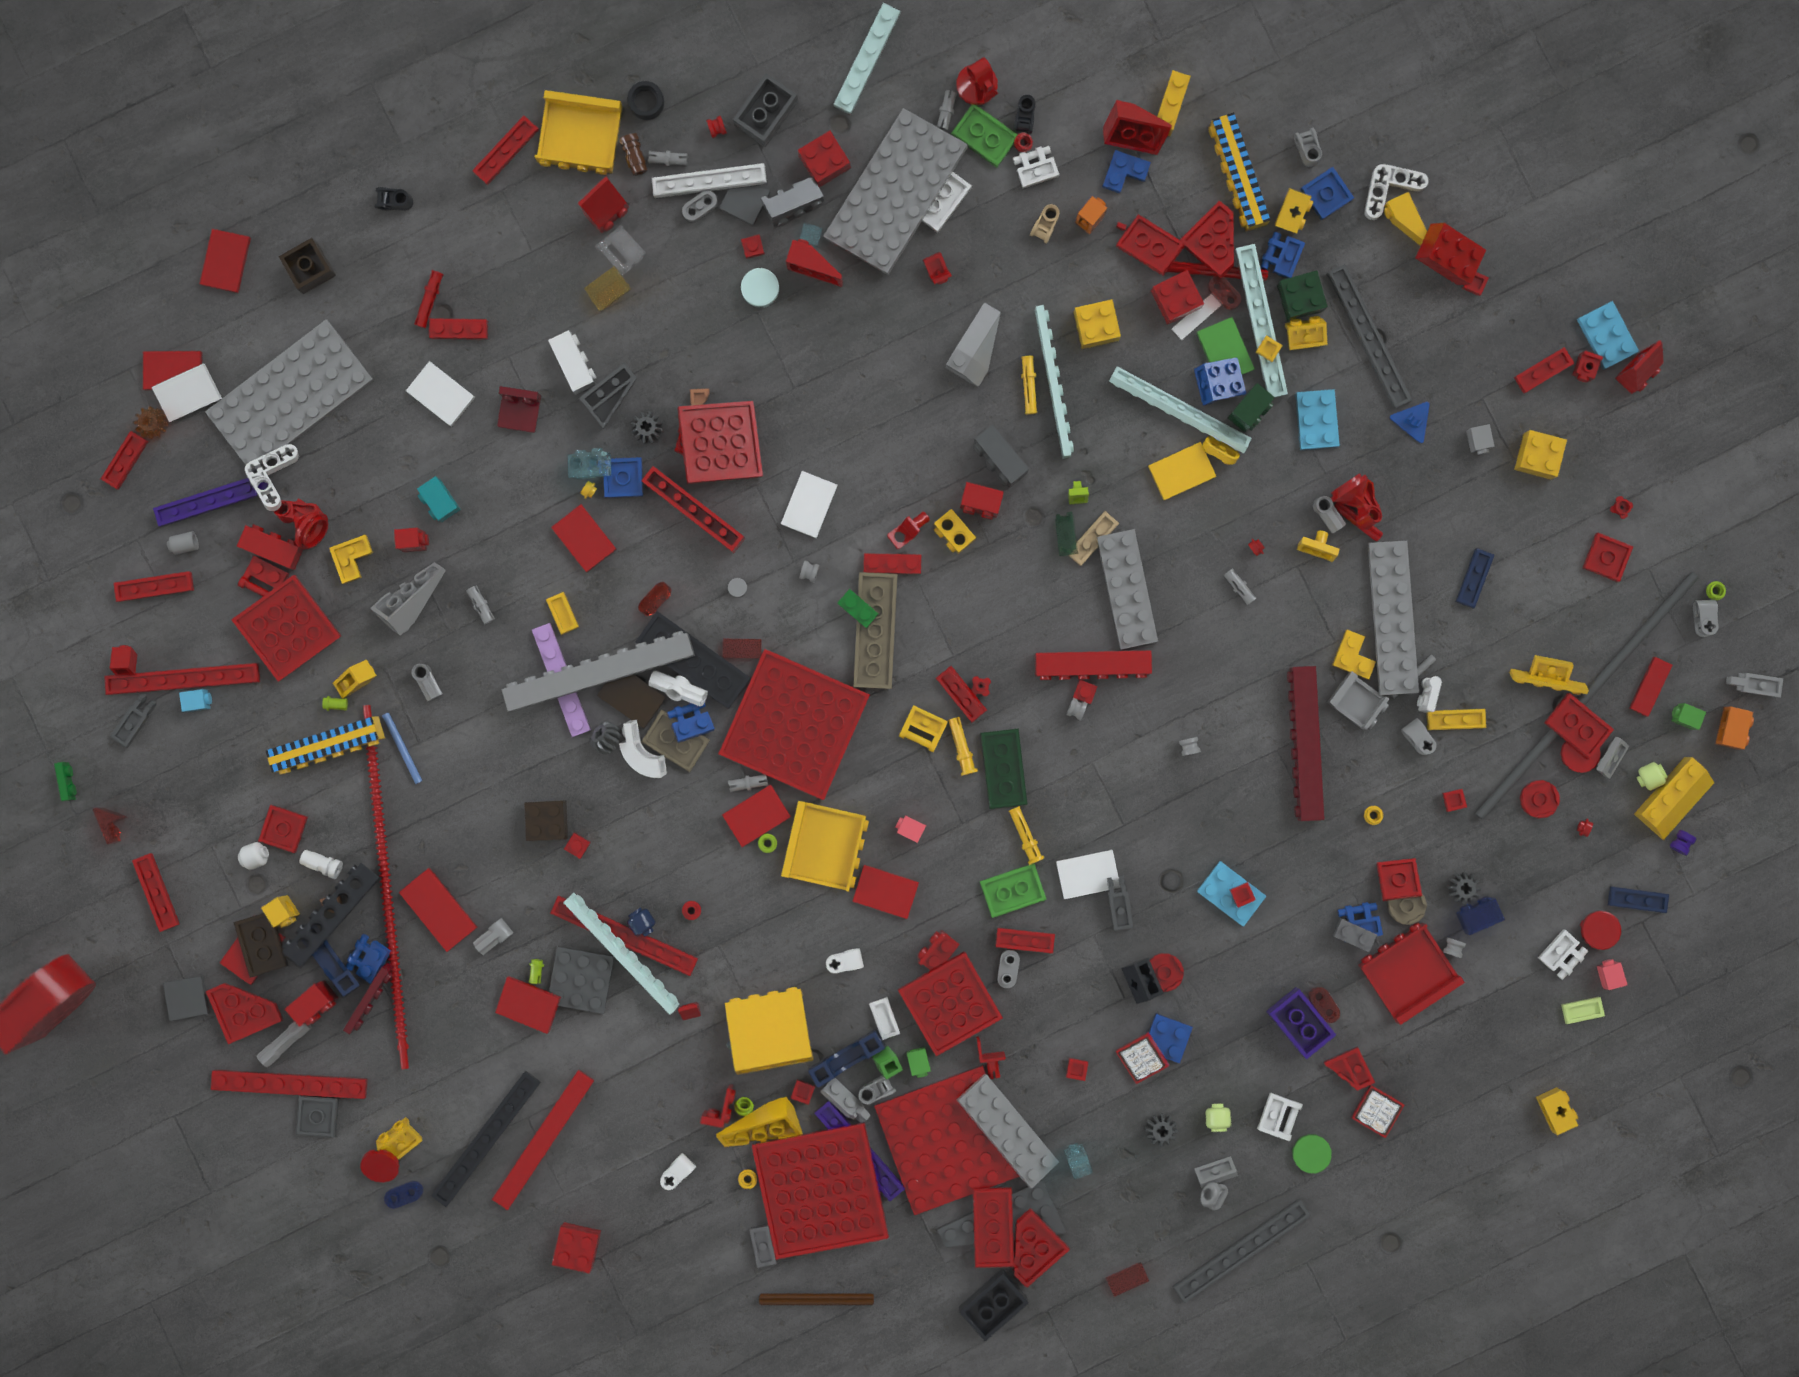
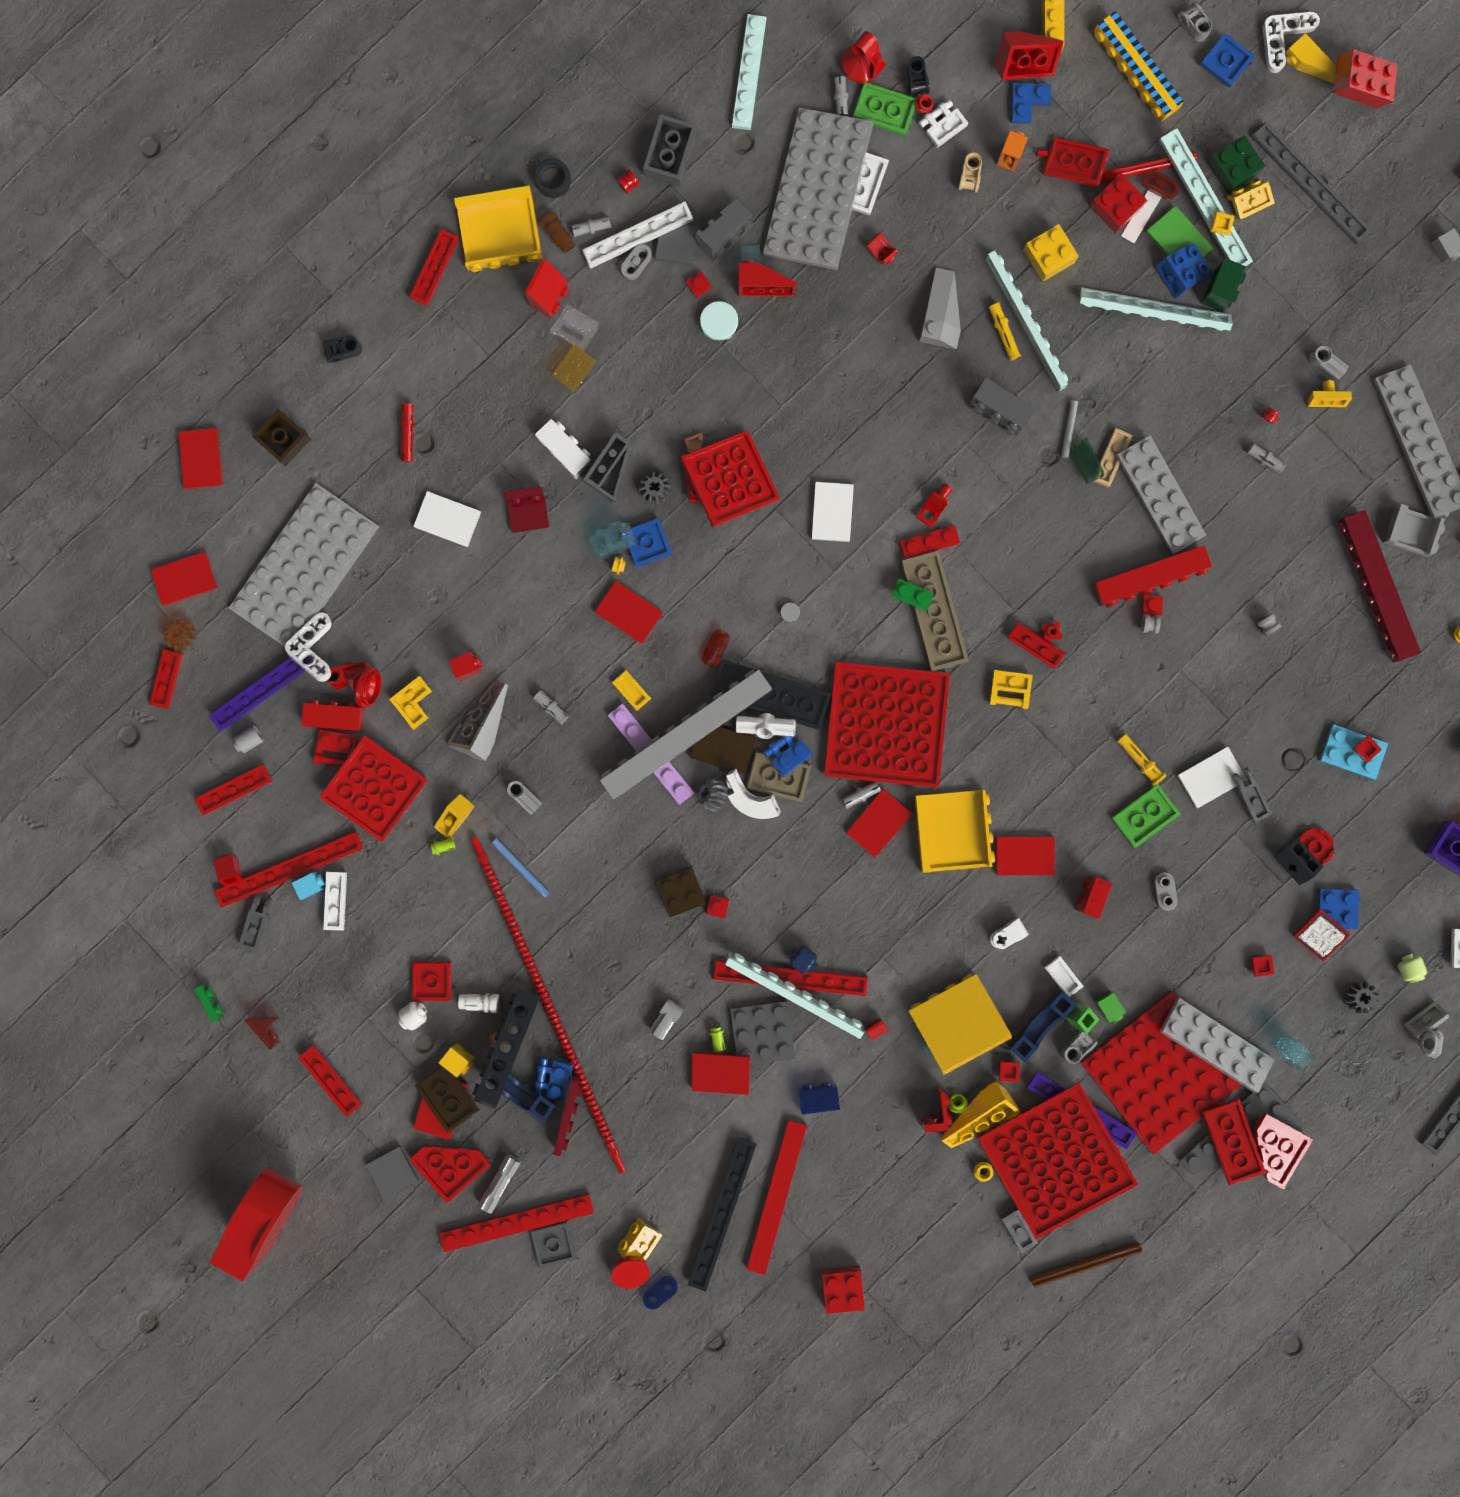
camera: 15 degrees left, 0 degrees up
(186, 392) = (205, 595): white tile -> none
(215, 723) = (335, 900): none -> white plate
(312, 1003) = (512, 1144): red brick -> none
(325, 744) = (447, 887): brick -> none
(438, 499) = (478, 619): teal brick -> none
(438, 909) = (605, 1010): red tile -> none
(458, 329) = (444, 452): red plate -> none
(613, 1059) = (818, 1098): none -> clear blue brick
(679, 1170) = (916, 1184): white piece -> none
(693, 509) = (725, 551): red brick -> none
(695, 905) = (842, 928): red plate -> none
(742, 648) = (813, 668): clear red tile -> none
(763, 848) = (893, 841): lime plate -> none
(809, 571) = (853, 575): light grey wheel -> none
(824, 158) = (740, 178): red brick -> none
(845, 1101) = (1053, 1067): light grey hinge -> none
(910, 828) = (1030, 788): coral brick -> none
(950, 1003) = (1122, 942): red plate -> none
(958, 528) = (982, 488): yellow brick -> none
(964, 755) = (1058, 702): yellow pin -> none
(981, 501) = (997, 454): red brick -> none
(991, 1060) = (1177, 982): red bracket -> none
(993, 1305) = (1258, 1215): black brick -> none
(1004, 768) = (1099, 703): dark green tile -> none
(1025, 940) = (1173, 859): red plate -> none
(1061, 497) = (1069, 429): none -> light grey bar
(1078, 494) = (1085, 419): lime tile -> none
(1127, 1279) = (1375, 1149): clear red tile -> none
(1182, 471) = (1175, 367): yellow tile -> none
(1213, 239) = (1135, 138): red plate -> none
(1220, 450) = (1206, 335): yellow plate -> none
(1285, 219) = (1198, 96): yellow brick -> none
(1288, 257) = (1210, 132): blue plate -> none
(1317, 419) = (1287, 277): medium azure plate -> none
(1348, 658) = (1391, 493): yellow plate -> none
(1351, 515) = (1358, 360): red axle -> none
(1360, 494) = (1353, 334): red piece -> none
(1413, 420) = (1378, 249): blue piece -> none
(1477, 285) = (1399, 101): red plate -> none

